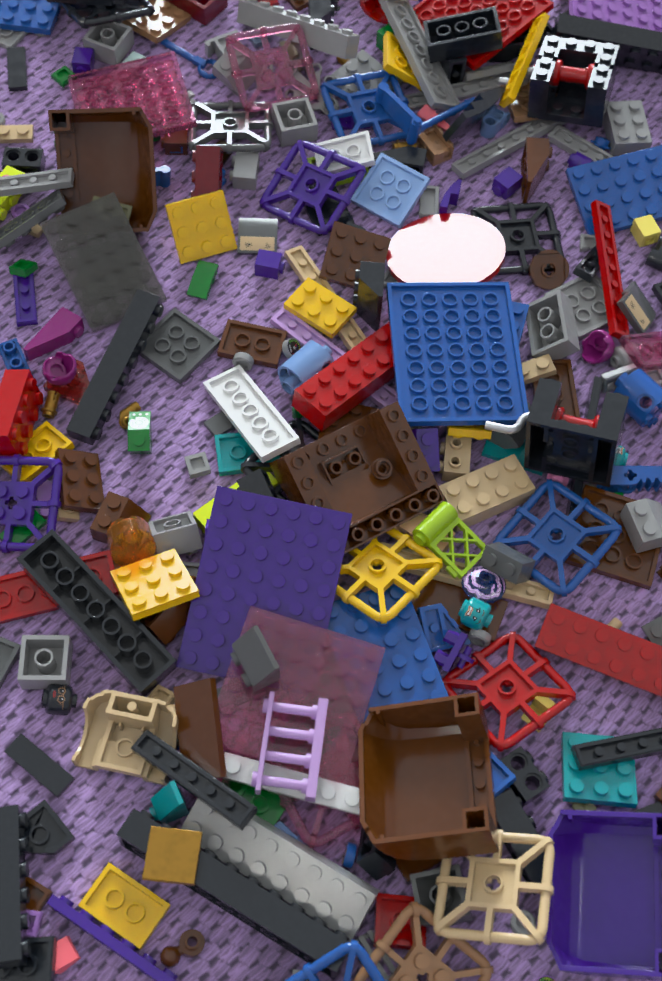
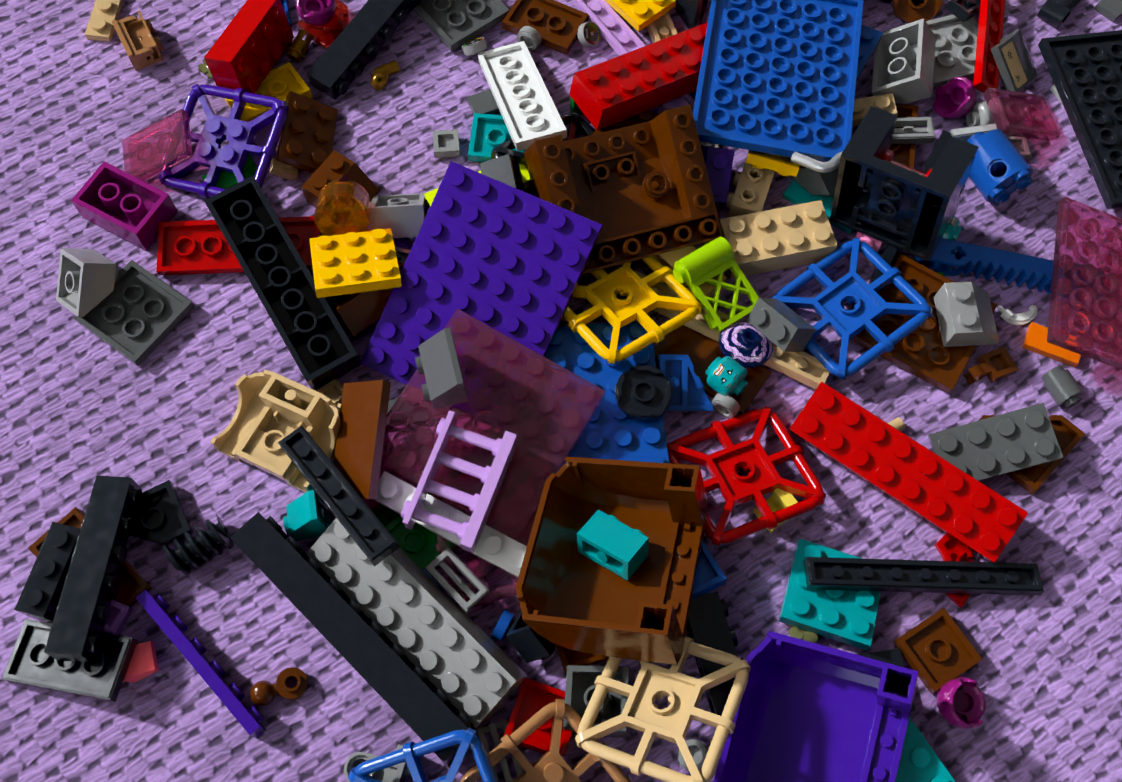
camera: 15 degrees right, 5 degrees up
(39, 765) = (176, 441): black tile -> none
(45, 661) = (212, 326): light grey brick -> none
(58, 699) = (216, 371): black head -> none
(85, 848) = (199, 546): none -> black piece
(124, 905) = (226, 622): yellow plate -> none
(139, 432) = (388, 94): green slope -> none
(172, 856) = (286, 577): pearl gold tile -> none
(199, 376) = (474, 46): none -> light grey tile
(300, 835) = (474, 599): none -> light grey tile
(304, 365) = (596, 49): medium blue cylinder -> none
(414, 642) = (643, 393): none -> black tile
(422, 769) = (613, 544): none -> teal brick
(447, 660) = (680, 424): dark purple hips -> none
(528, 773) = (743, 578): black brick -> none
(571, 384) = (913, 135): none -> light grey tile

